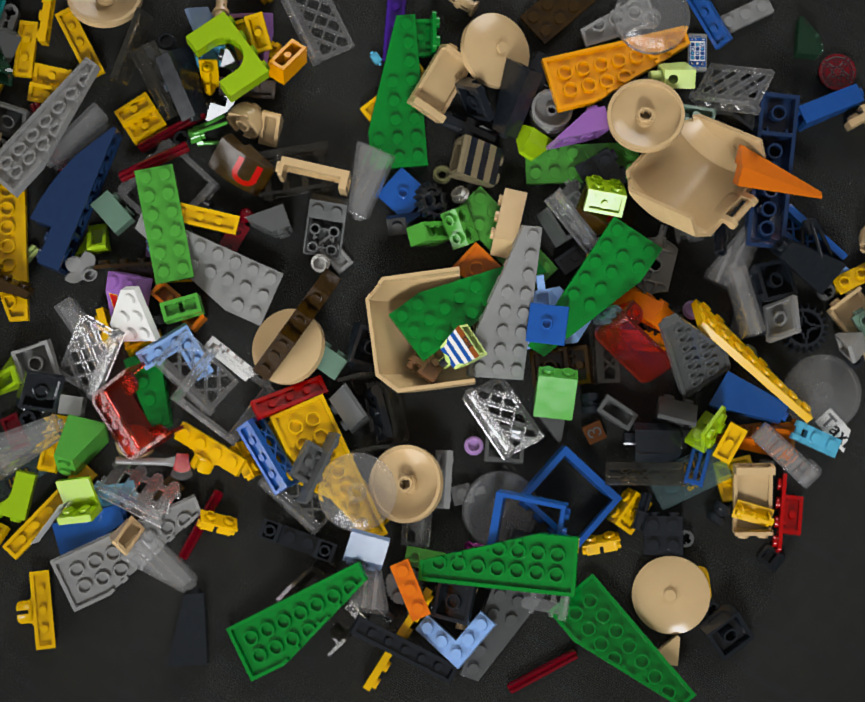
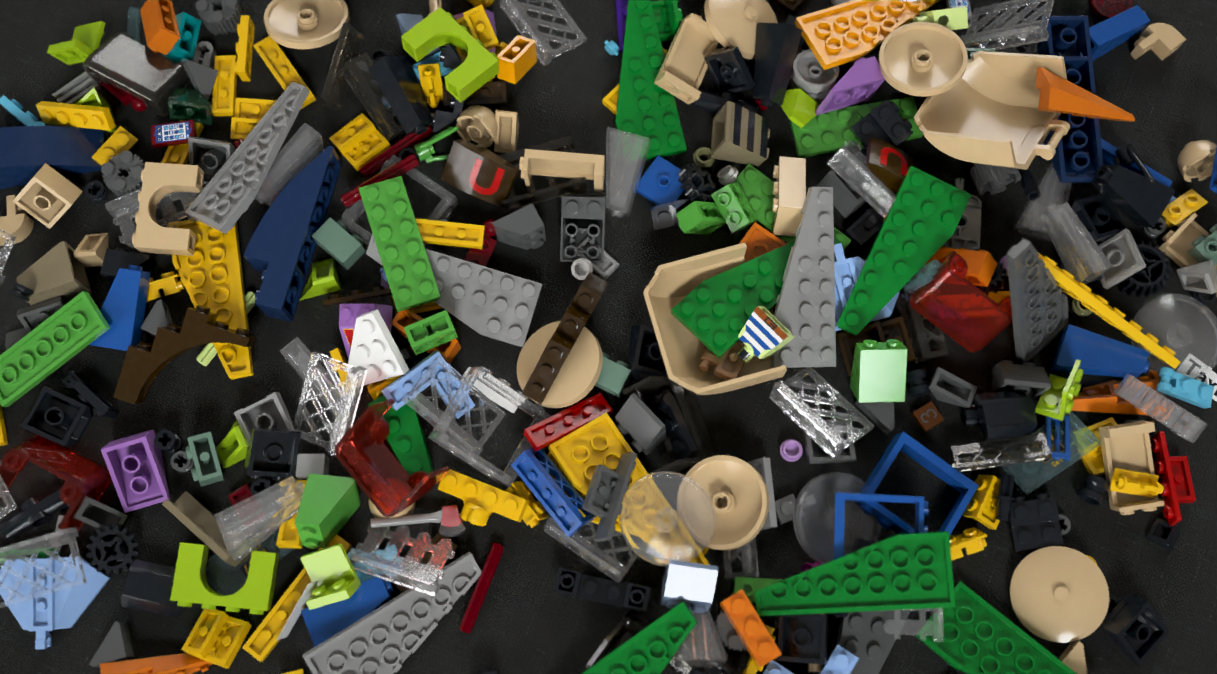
camera: 10 degrees left, 10 degrees down
(81, 268) = (306, 306): light grey plate -> none
(127, 535) = (394, 609): tan slope -> none
(159, 561) = (434, 636): clear slope -> none
(225, 524) = (511, 583): yellow hinge -> none
(547, 324) = (857, 295): blue plate -> none
(605, 196) = (897, 148): bracket -> none
(730, 443) = (1090, 404): yellow plate -> none

